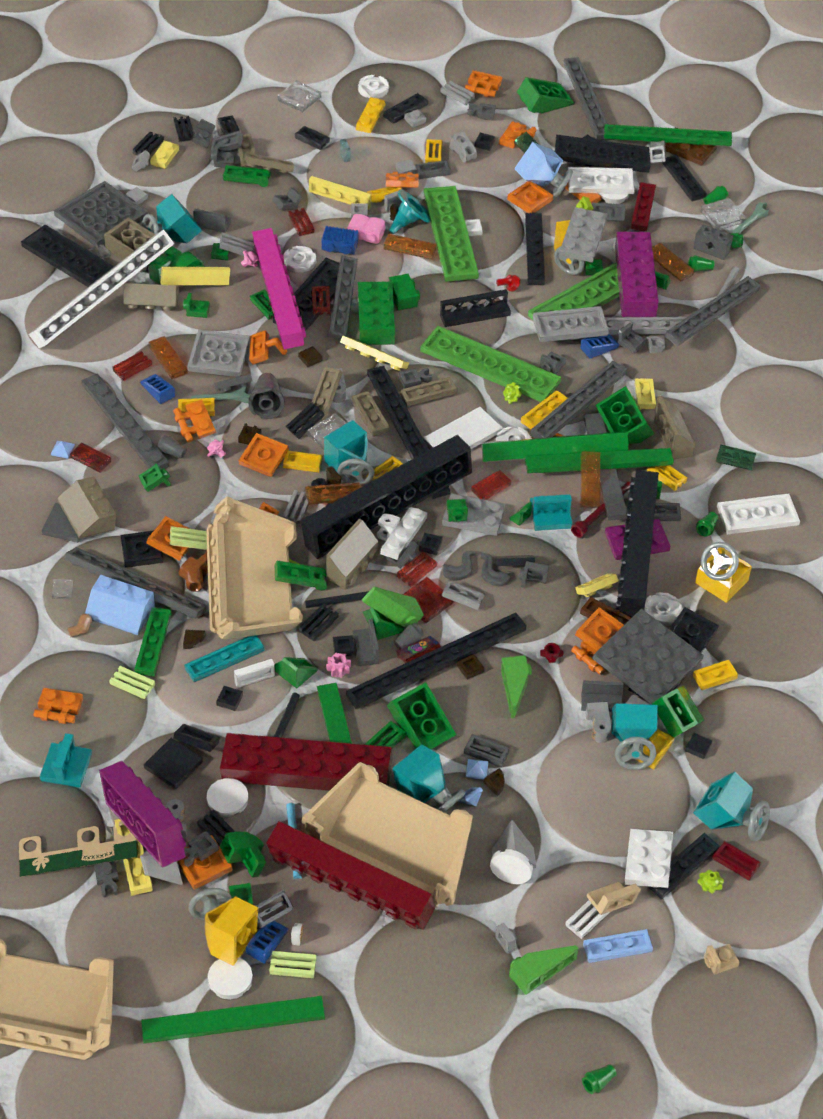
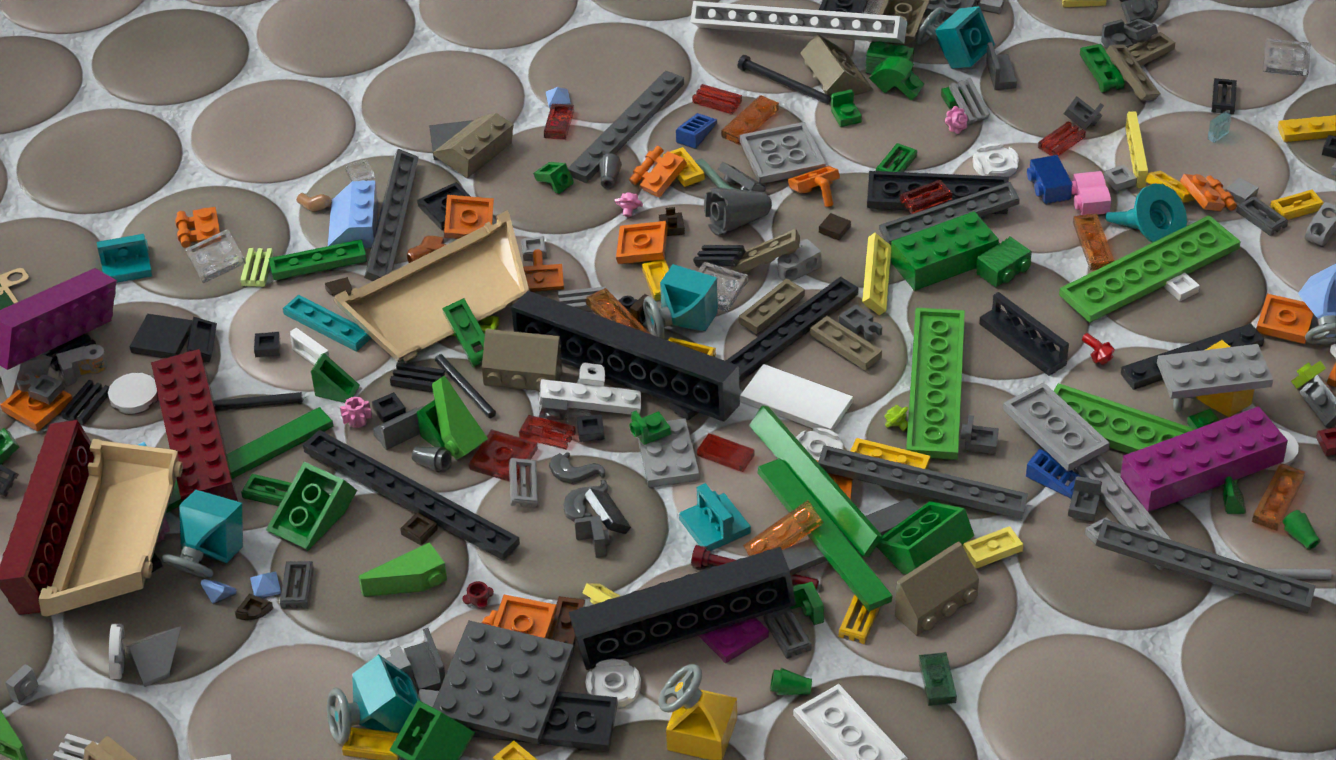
camera: 70 degrees right, 5 degrees down
(105, 337) = (746, 63): none -> black bar
(106, 702) = (215, 256): none -> clear plate
(187, 536) = (465, 213): yellowish green tile -> none
(195, 275) = (884, 86): light yellow tile -> none
(222, 126) = (1180, 28): black tile -> none
(244, 847) = (54, 411): green brick -> none
(278, 288) = (914, 153): dark pink brick -> none
(418, 649) = (417, 471): tile -> none
(522, 514) = (687, 493): green slope -> none

